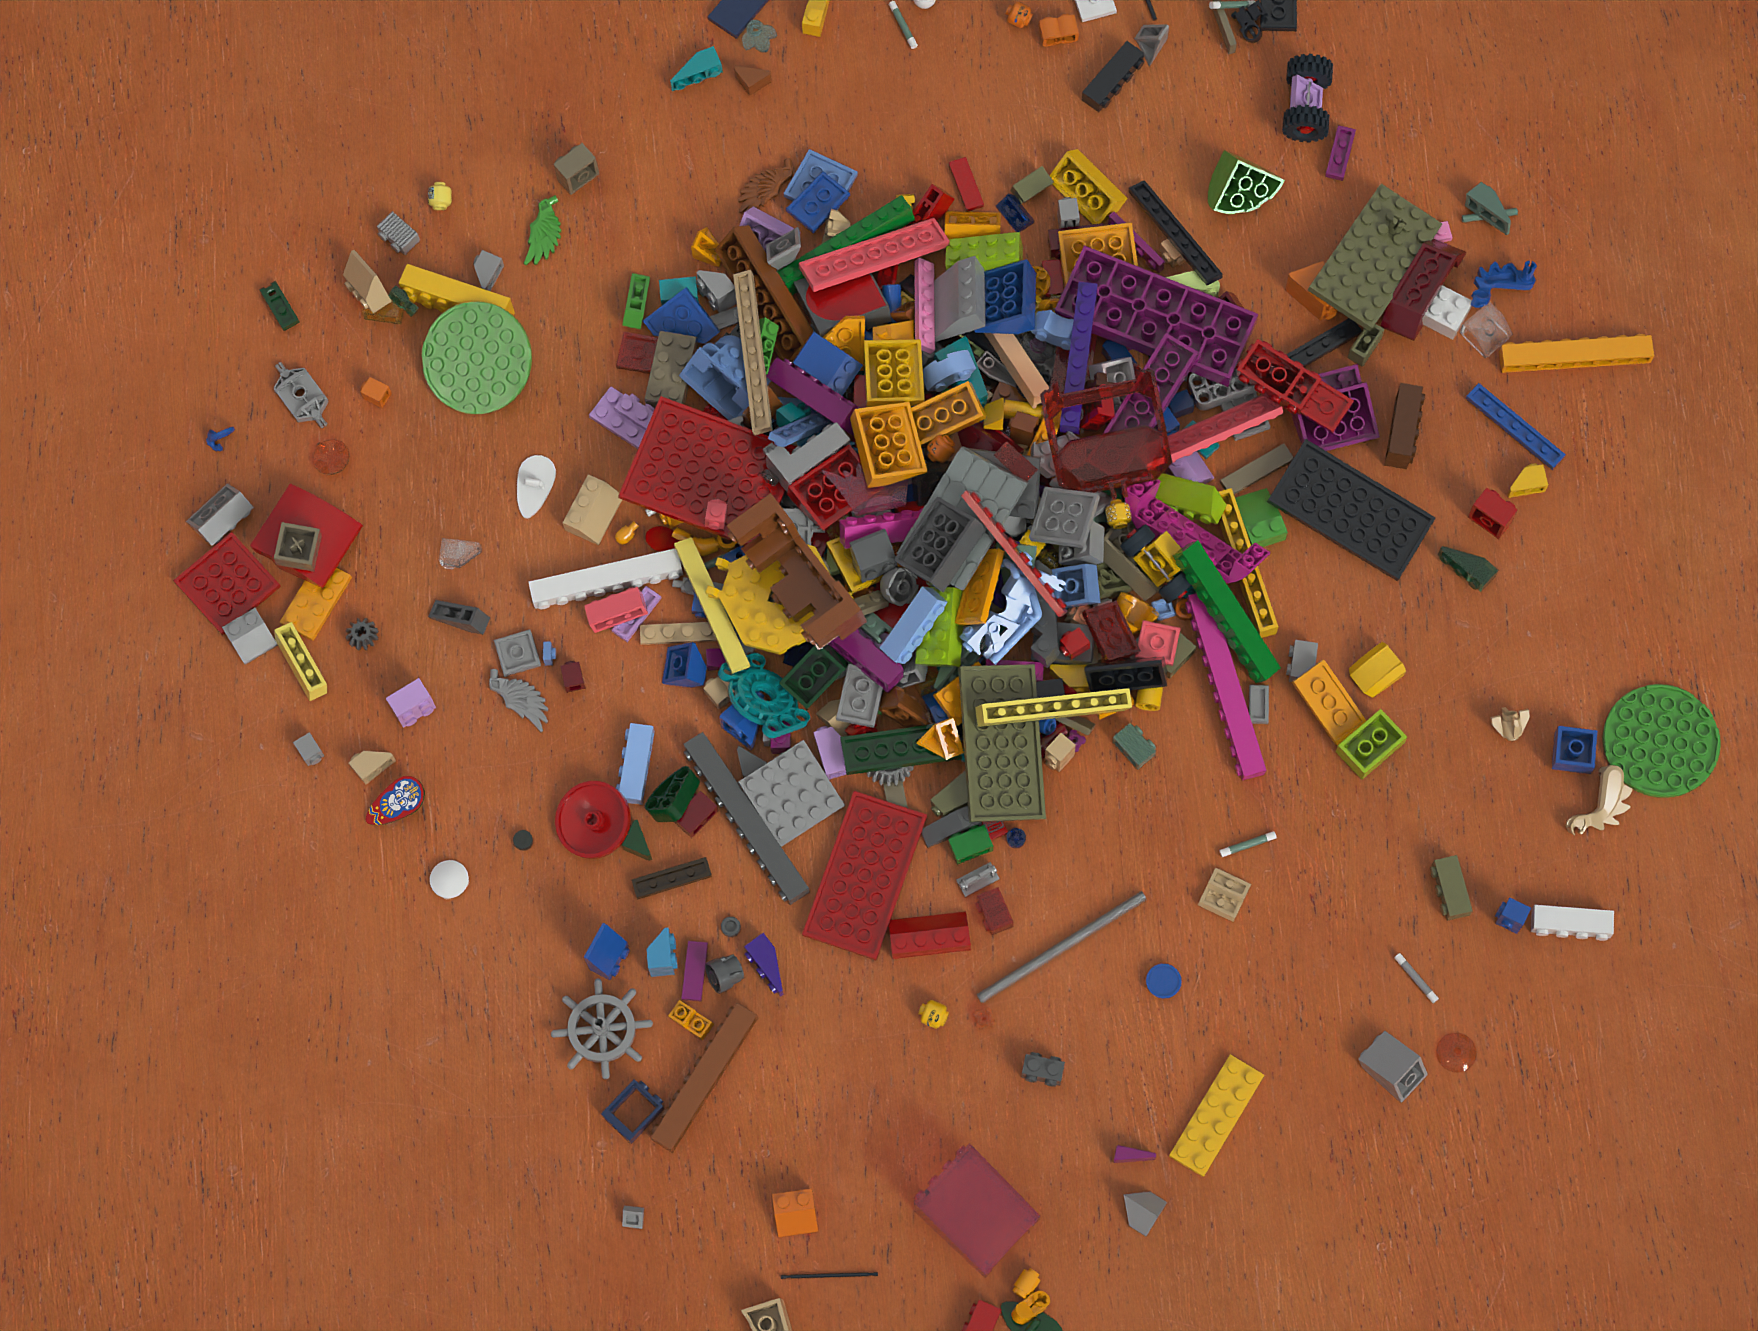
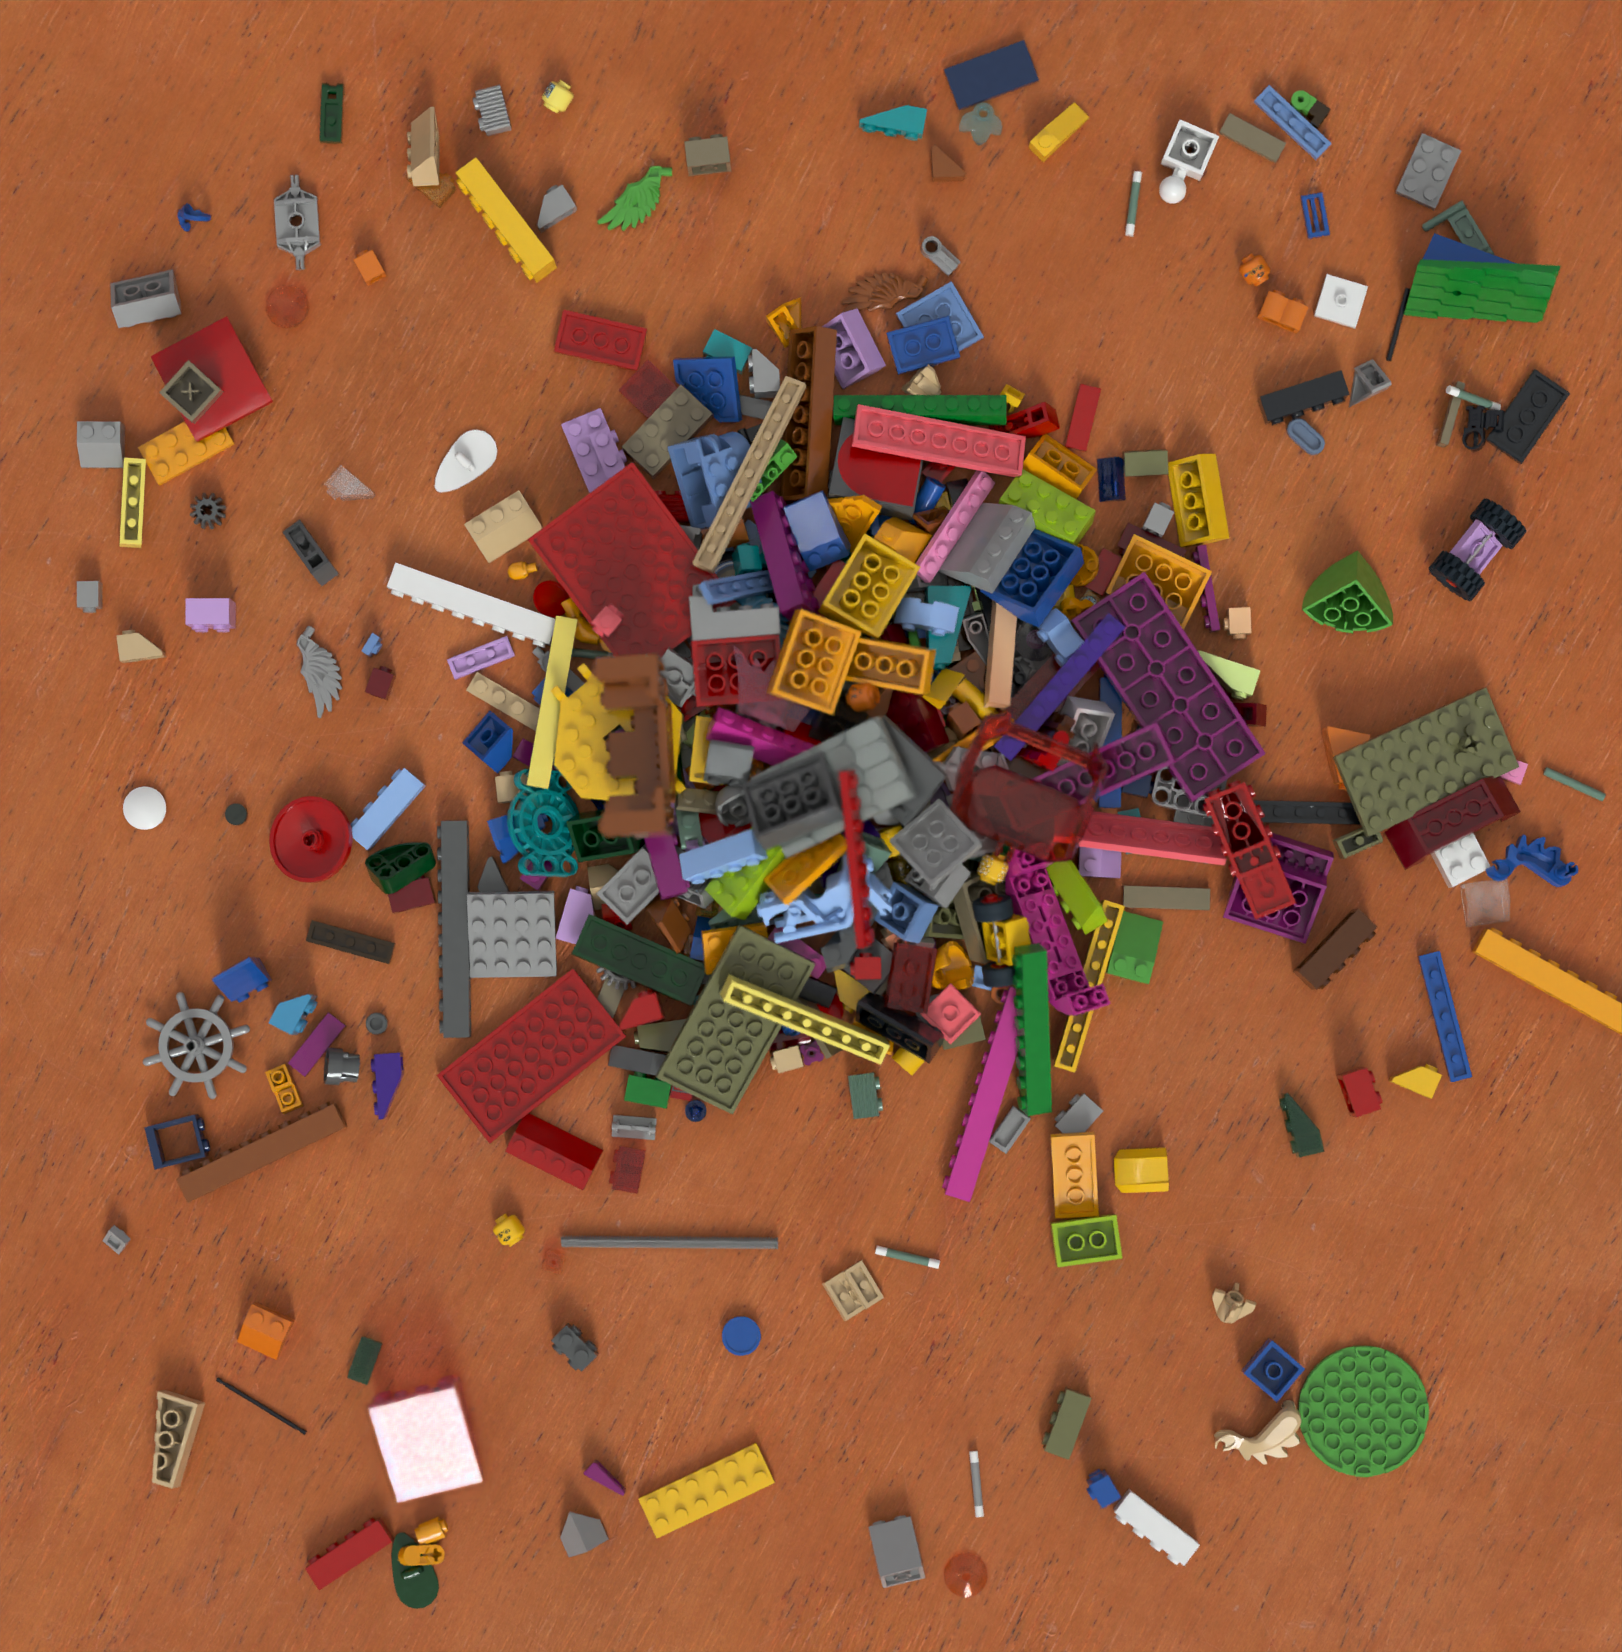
camera: 30 degrees right, 15 degrees up
(226, 582) = (111, 374): red plate -> none
(396, 801) = (140, 702): shield -> none
(402, 300) = (450, 186): clear green plate -> none
(476, 357) = (486, 298): bright green tile -> none
(517, 653) = (344, 624): light grey tile -> none
(580, 340) = (600, 340): none -> red plate
(616, 609) = (462, 643): coral brick -> none
(636, 301) = (681, 333): bright green slope -> none
(636, 843) = (339, 886): dark green slope -> none
(769, 477) = (684, 614): clear smoke tile -> none
(783, 249) = (853, 378): light grey slope -> none
(790, 137) = (941, 257): none -> light grey piece
(887, 1186) = (364, 1360): none -> clear green plate
(931, 778) = (643, 1010): none -> red slope
(942, 739) = (681, 981): light orange slope -> none
(1015, 461) = (918, 766): clear red slope -> none
(1132, 102) = (1305, 436): none -> sand blue tile
(1175, 232) = (1249, 608): black tile -> none
(1340, 153) = (1472, 624): magenta plate -> none
(1351, 510) = (1226, 999): black plate -> none
(1487, 205) = (1576, 773): sand green slope -> none

